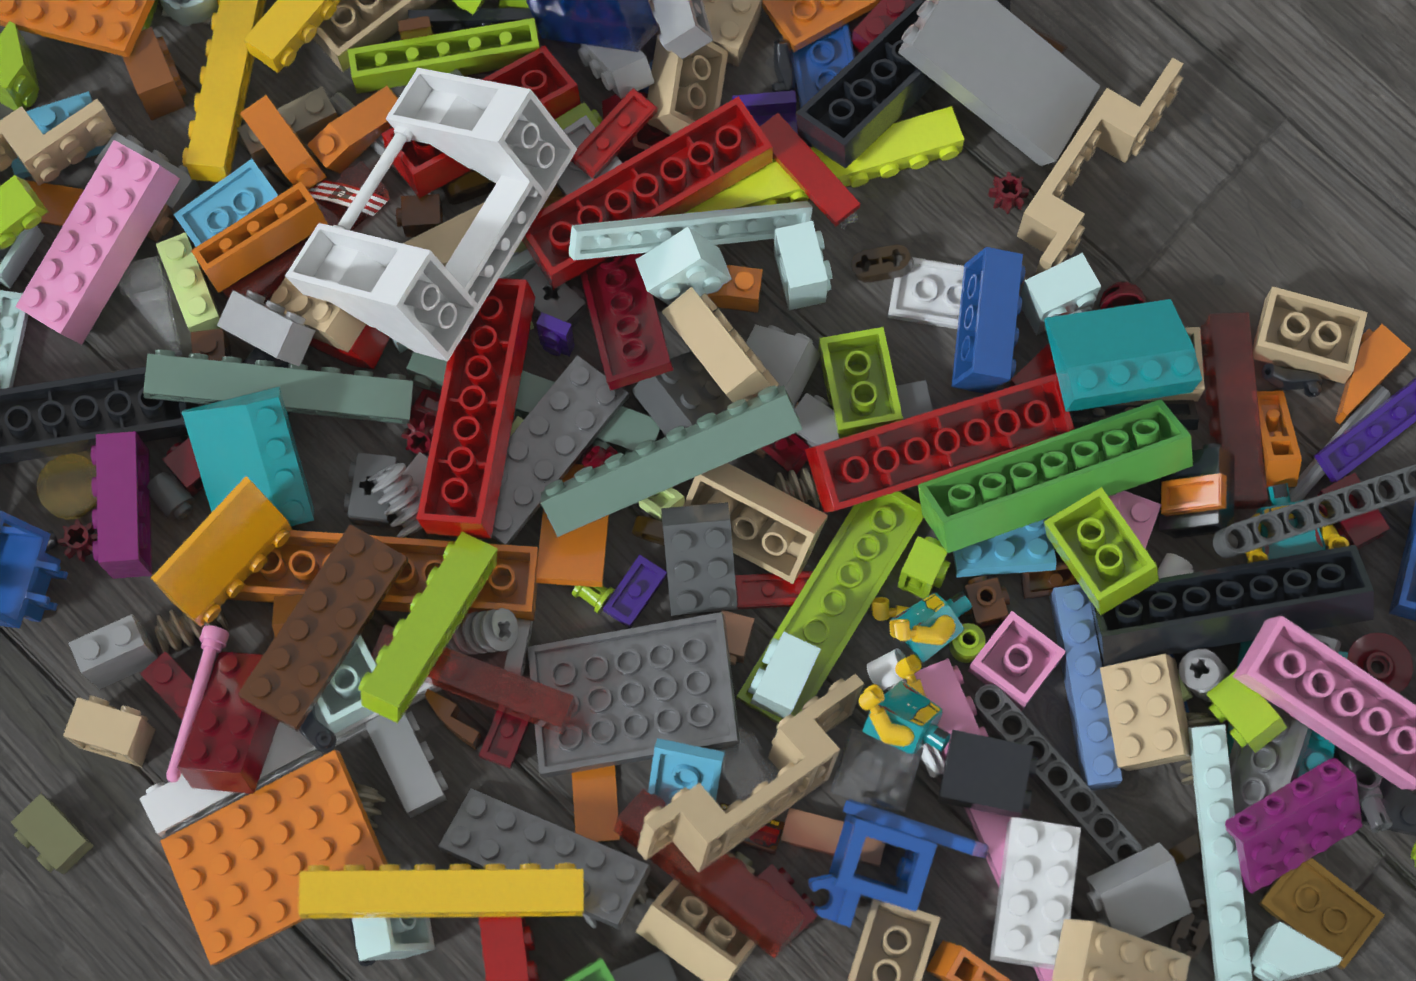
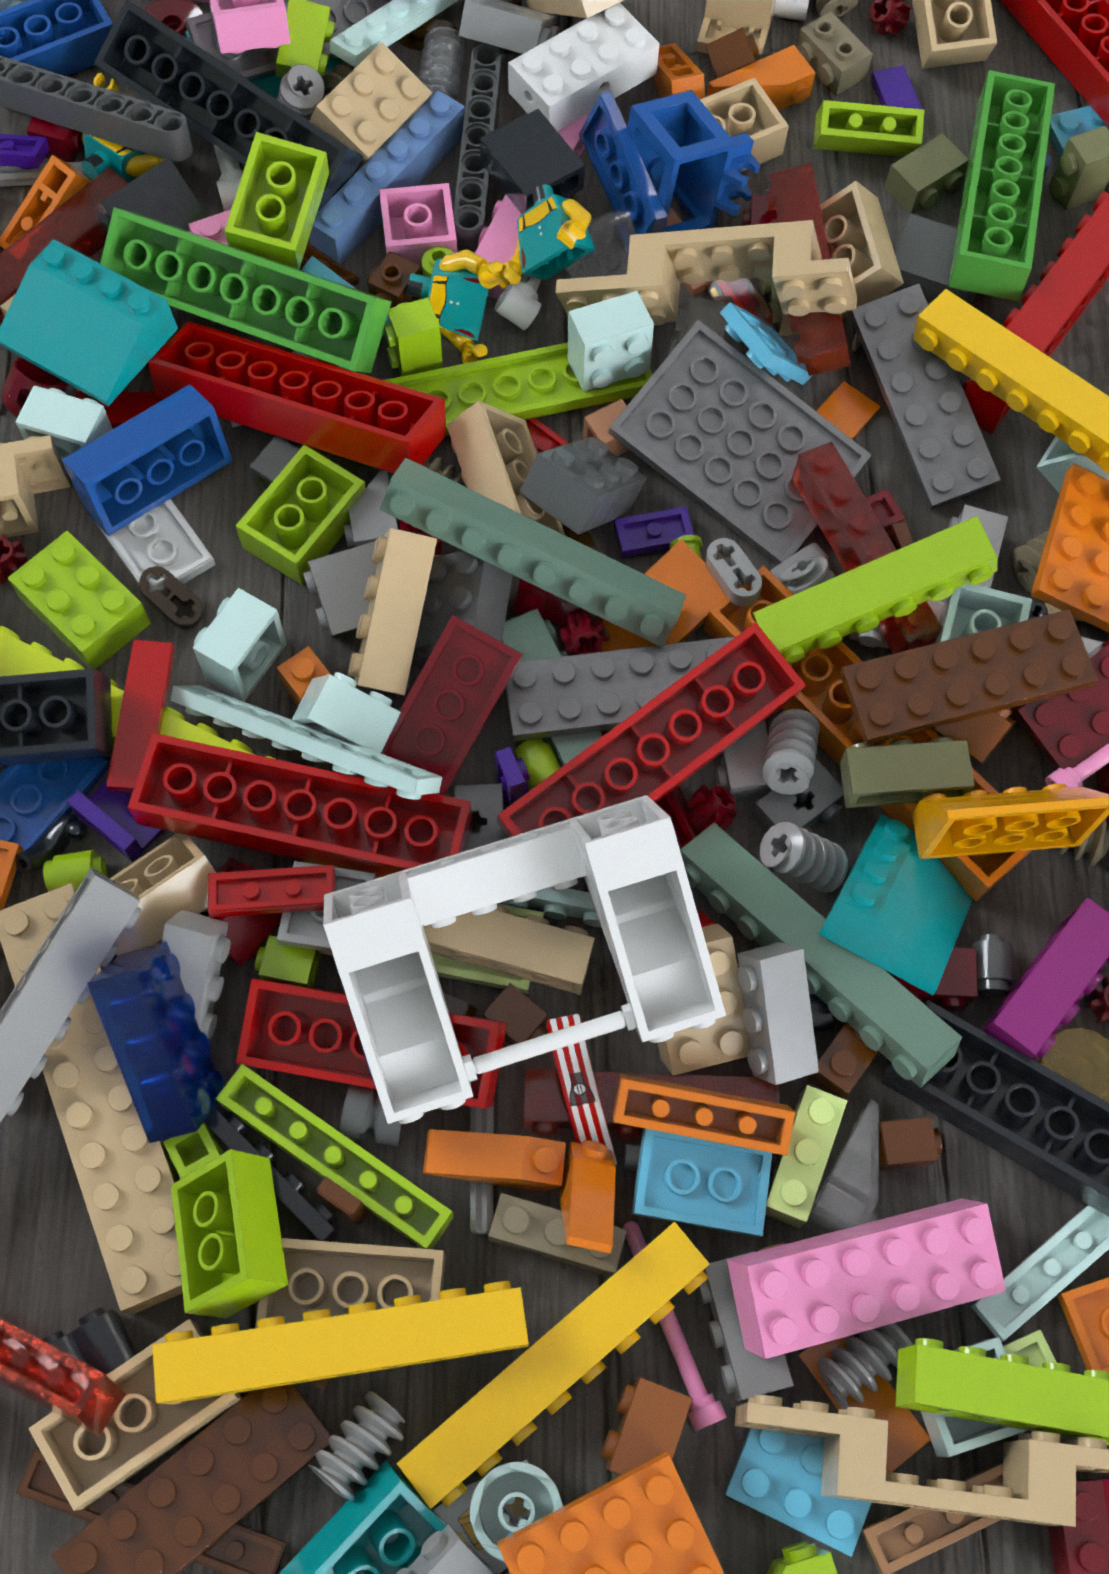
camera: 140 degrees left, 5 degrees down
(64, 198) = (862, 1362): none -> light grey piece
(134, 120) = (703, 1407): none -> bright pink piece
(134, 344) = (908, 1144): none -> reddish brown brick
(312, 540) = (905, 772): none -> olive brick
(336, 446) = (804, 856): none -> light grey piece
(546, 575) = (739, 567): none -> light grey beam
(547, 364) = (539, 760): none -> lime brick
(752, 68) = (72, 868): none -> lime brick
(932, 209) = (79, 600): none -> lime brick
(1151, 816) = (442, 61): none -> clear piece
(1193, 494) = (159, 193): orange tile -> none

